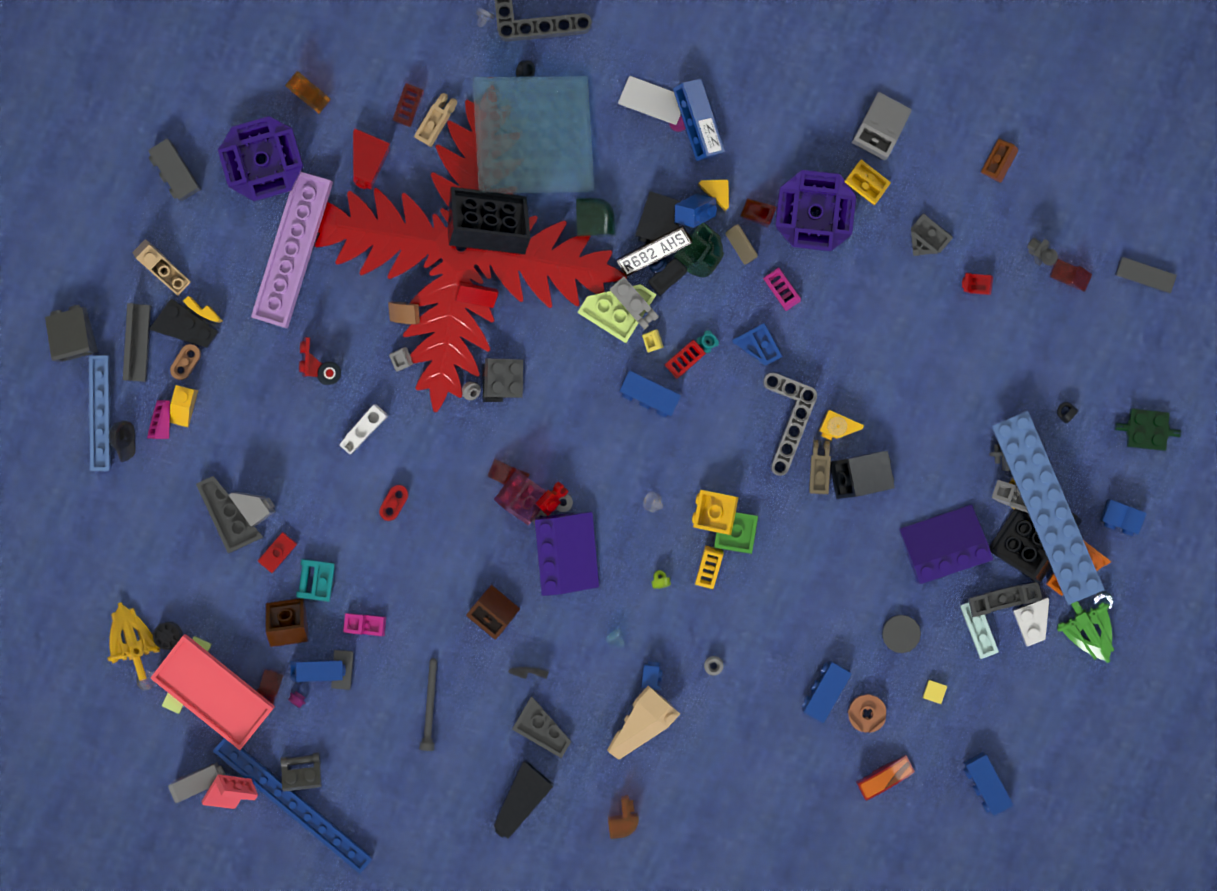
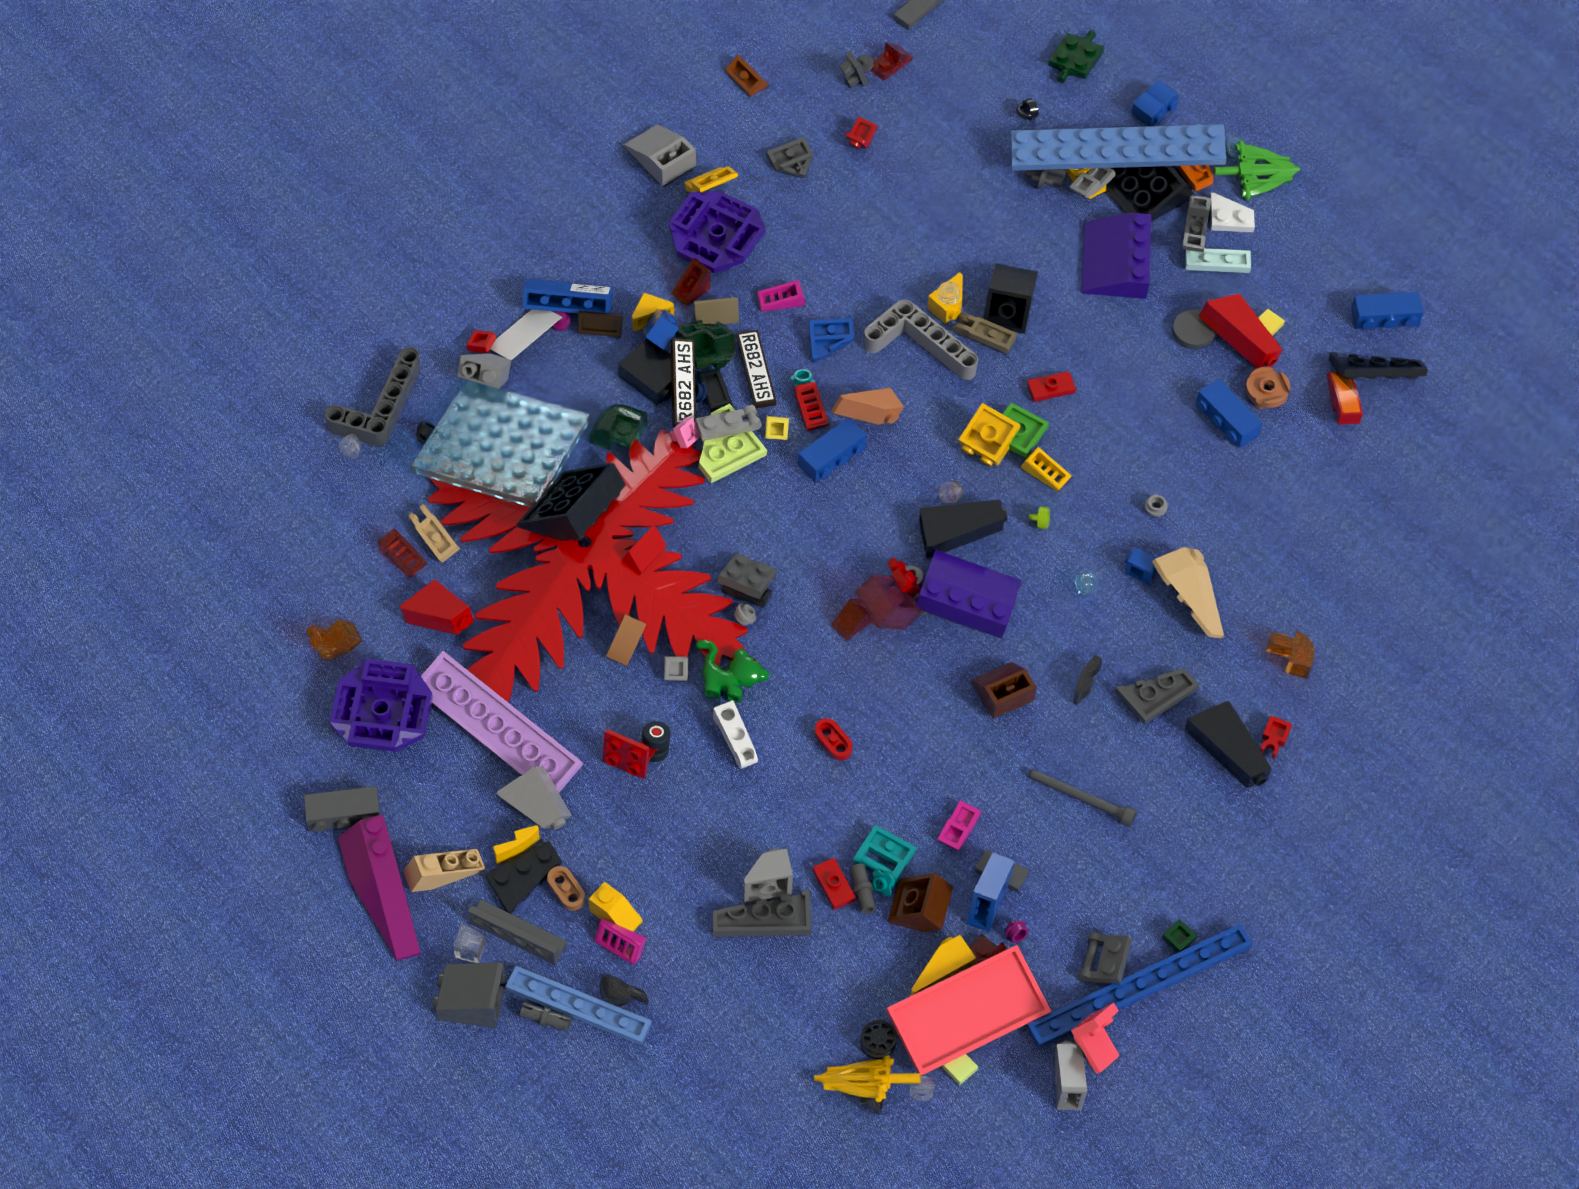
camera: 70 degrees left, 30 degrees down
(82, 393) = (545, 1016): none -> dark grey pin
(110, 314) = (469, 944): none -> clear brick
(130, 225) = (378, 883): none -> magenta wedge
(241, 308) = (537, 798): none -> light grey slope
(246, 660) = (948, 960): none -> yellow slope
(281, 575) = (863, 888): none -> dark grey pin
(291, 588) = (883, 882): none -> teal plate
(344, 818) = (1179, 936): none -> dark green plate
(417, 411) = (742, 671): none -> green animal
(547, 829) = (1275, 734): none -> red plate
(599, 88) = (485, 369): none -> light grey slope
(609, 273) = (685, 432): none -> bright pink tile
(623, 519) = (959, 524): none -> black slope
(627, 70) = (481, 341): none -> red plate
(687, 156) = (600, 323): none -> dark brown tile
(700, 411) = (871, 406): none -> nougat slope
(703, 299) = (756, 369): none -> tile
(792, 540) = (1051, 386): none -> red plate
(912, 675) = (1242, 329): none -> red slope
(921, 786) = (1377, 367): none -> black wing

